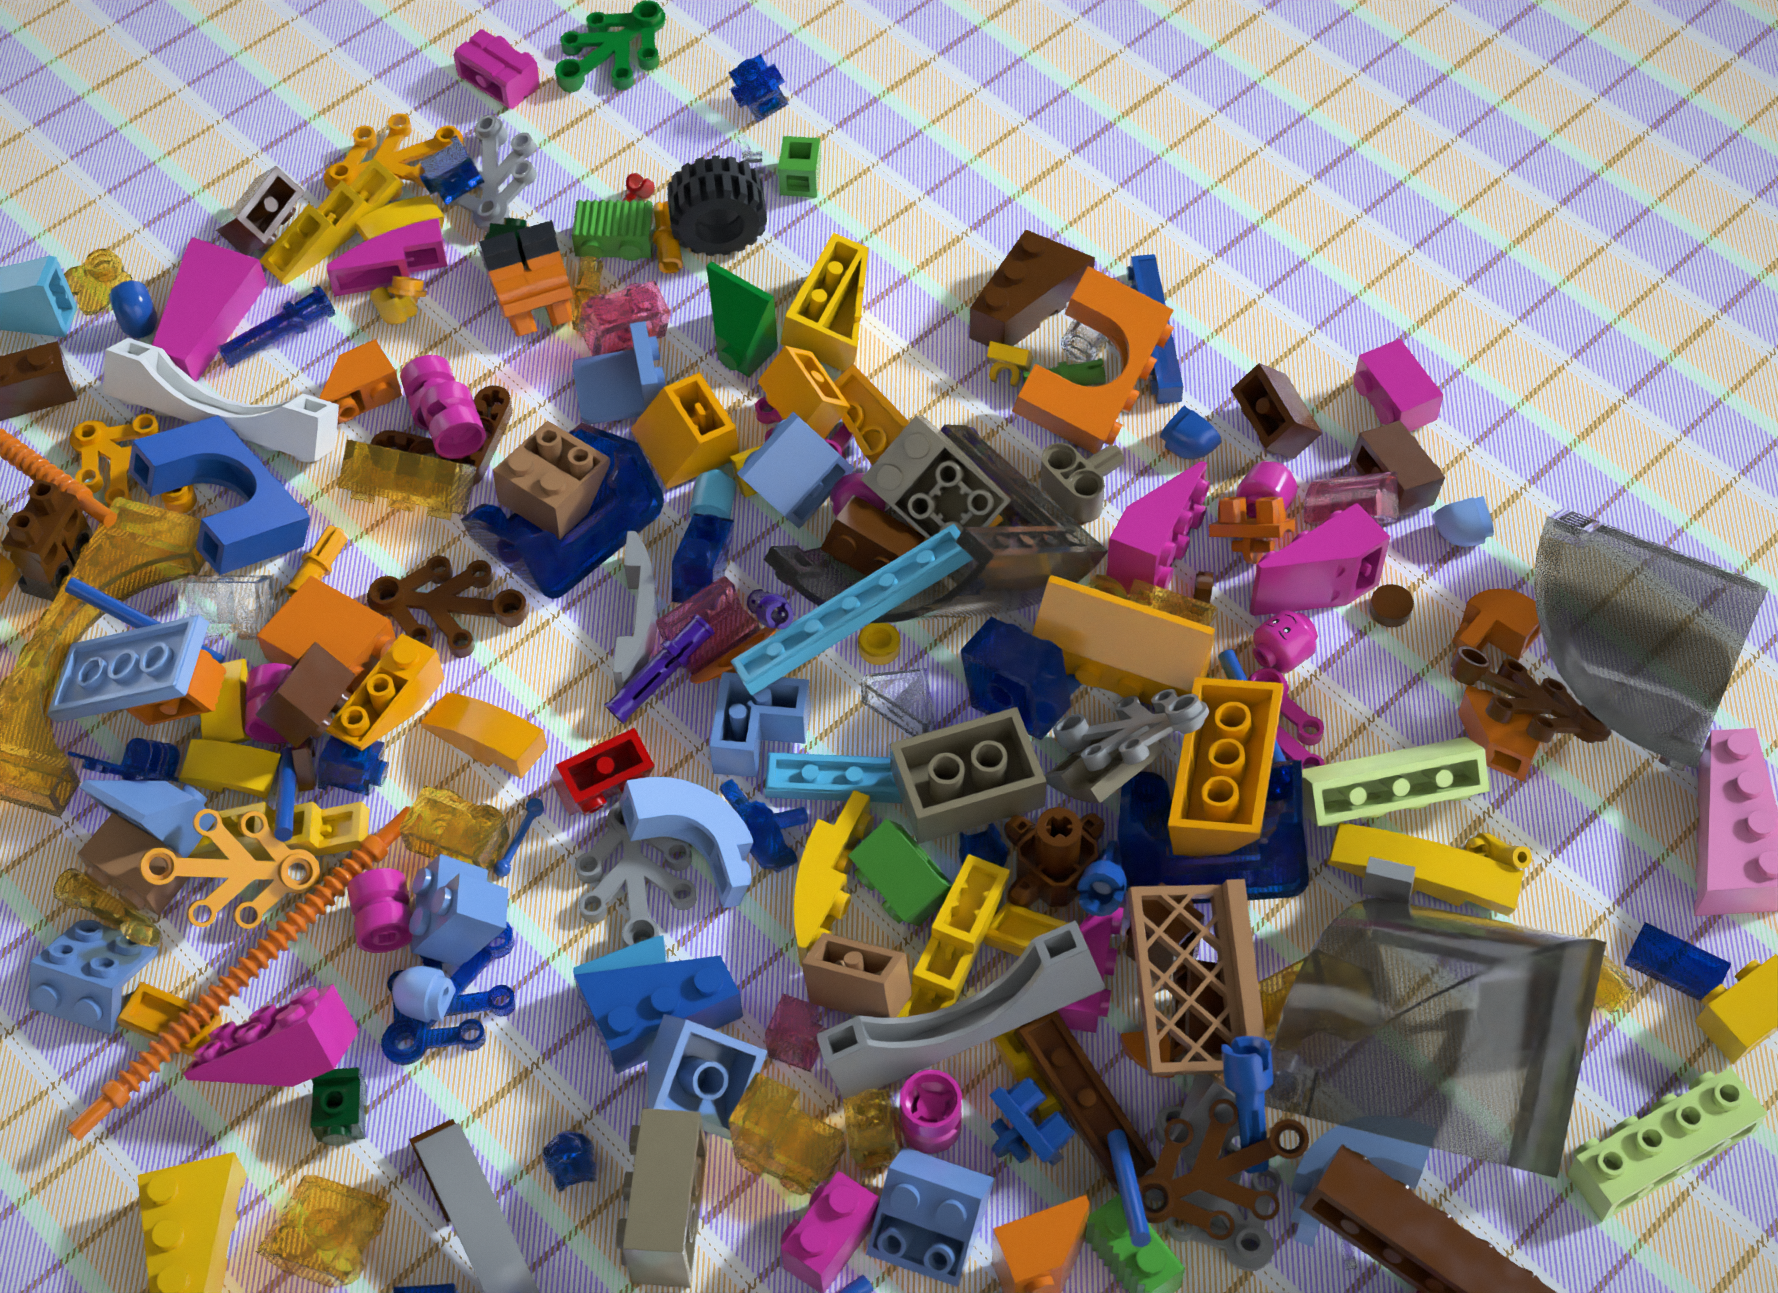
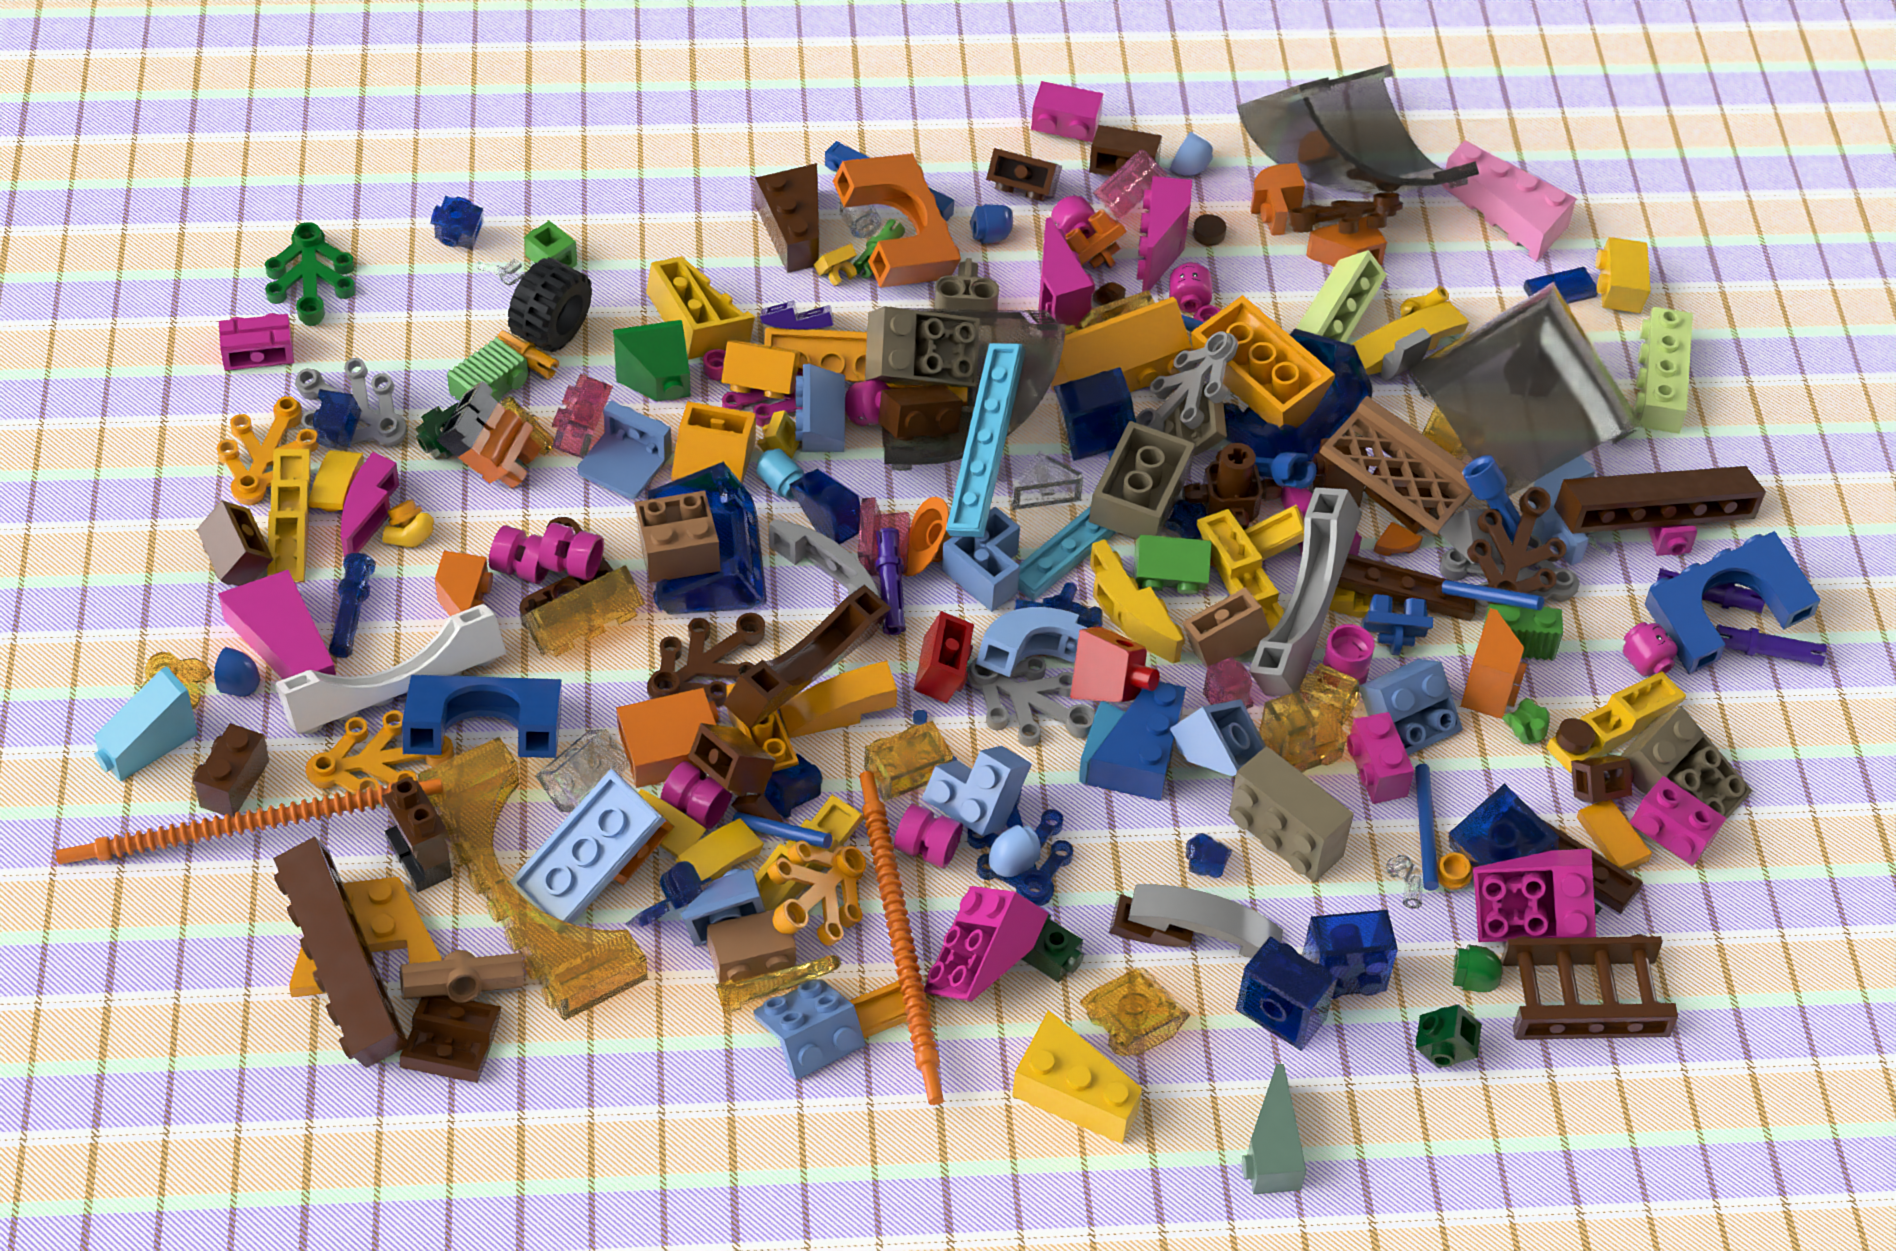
camera: 55 degrees left, 5 degrees down
(118, 609) = (518, 831): blue bar -> none
(319, 559) = (594, 706): light orange axle -> none
(408, 661) = (778, 680): none -> reddish brown arch
(634, 190) = (462, 347): red hand -> none
(701, 909) = (1110, 667): none -> torso
(769, 616) = (943, 479): dark purple pin -> none
(900, 377) = (787, 317): none -> dark purple slope

